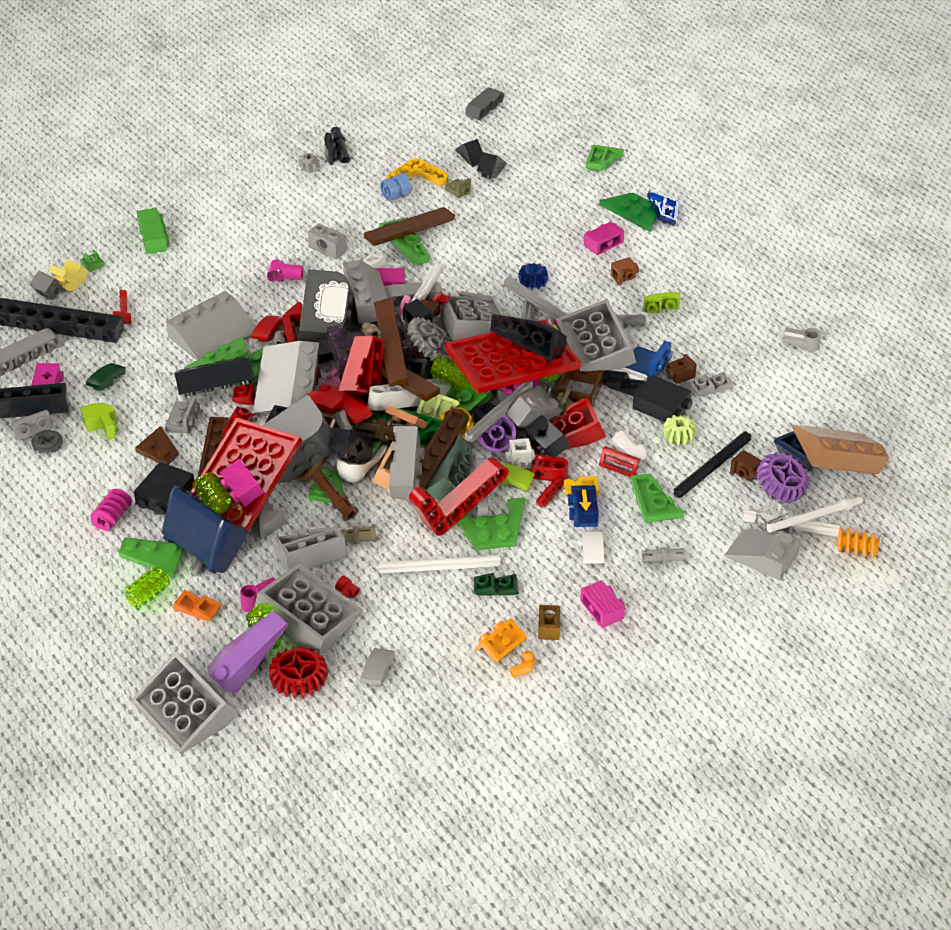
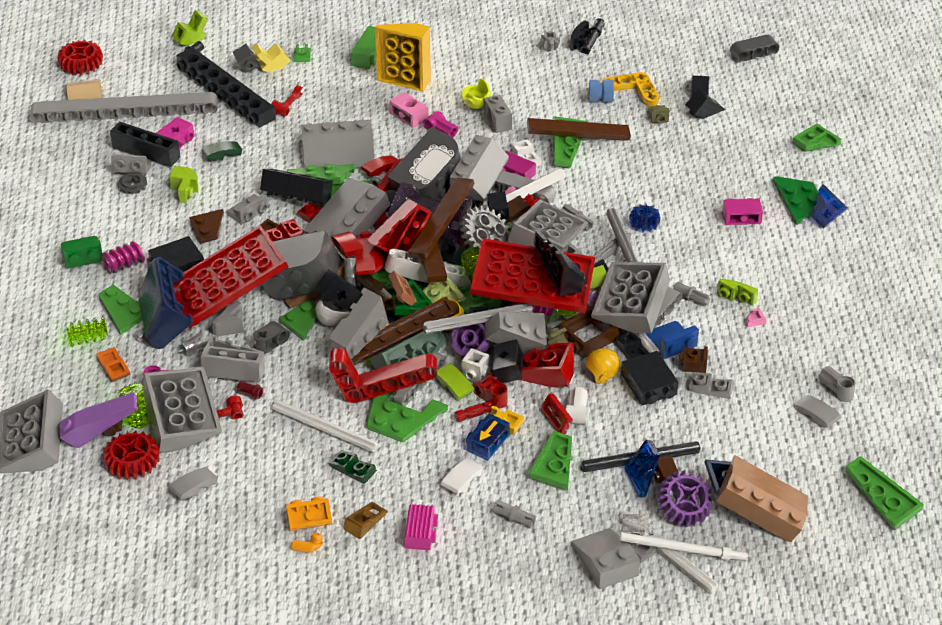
camera: 35 degrees right, 0 degrees up
(63, 522) = (82, 251): none -> green bracket
(207, 221) = (403, 55): none -> yellow slope
(212, 492) = (190, 278): clear neon green piece -> none
(241, 482) = (215, 279): dark pink brick -> none
(244, 270) = (408, 109): none -> bright pink brick
(252, 557) = (190, 346): none -> flat silver piece
(295, 232) = (474, 94): none -> neon yellow cap
(319, 513) = (270, 337): none -> dark grey piece
(339, 500) = (294, 333): reddish brown pin -> none
(345, 566) = (254, 391): none -> dark red pin
(360, 534) = (284, 368): dark tan pin -> none
(370, 330) = (434, 201): dark tan pin -> none
(618, 404) = (603, 364): none -> yellow cap
(624, 270) = (732, 248): dark orange brick -> none
(679, 430) = (638, 411): yellowish green gear -> none
(692, 317) = (756, 318): none -> bright pink tile
(729, 469) = (642, 467): none -> clear blue wing
(812, 366) = (818, 410): none -> light grey slope
(857, 542) = (698, 593): light orange piece -> none
(911, 404) = (887, 496): none -> bright green wing

